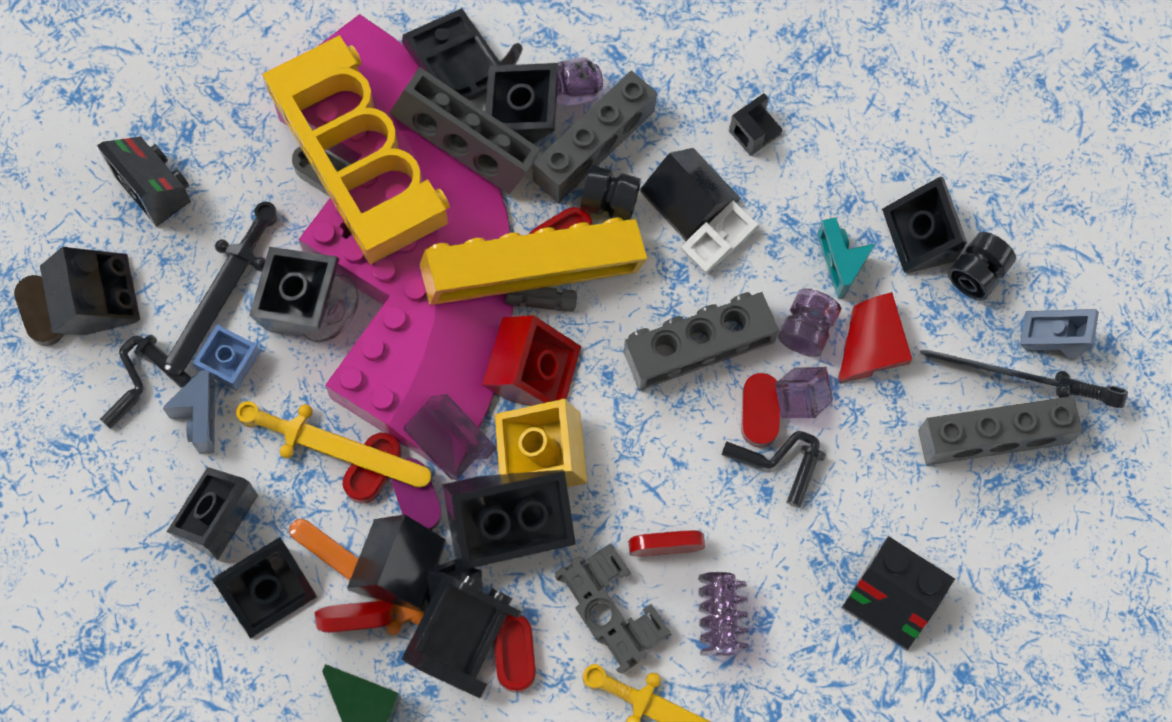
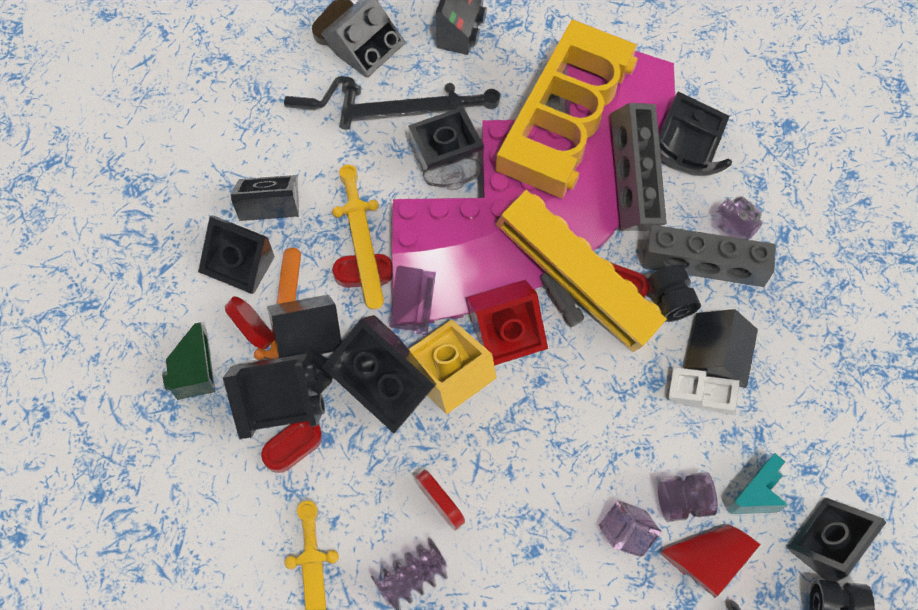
camera: 60 degrees right, 5 degrees down
(197, 402) = (332, 141): sand blue slope -> none
(227, 357) = (375, 137): medium blue piece -> none
(418, 502) = (357, 309): magenta tile -> none
(524, 98) = (694, 191): black slope -> none
(622, 641) = (346, 515): dark grey piece -> none
(653, 368) = (618, 442): dark grey brick -> none
(754, 125) = (811, 360): black panel -> none
(760, 410) = (591, 505): red tile -> none
(805, 471) = (570, 569): black piece -> none

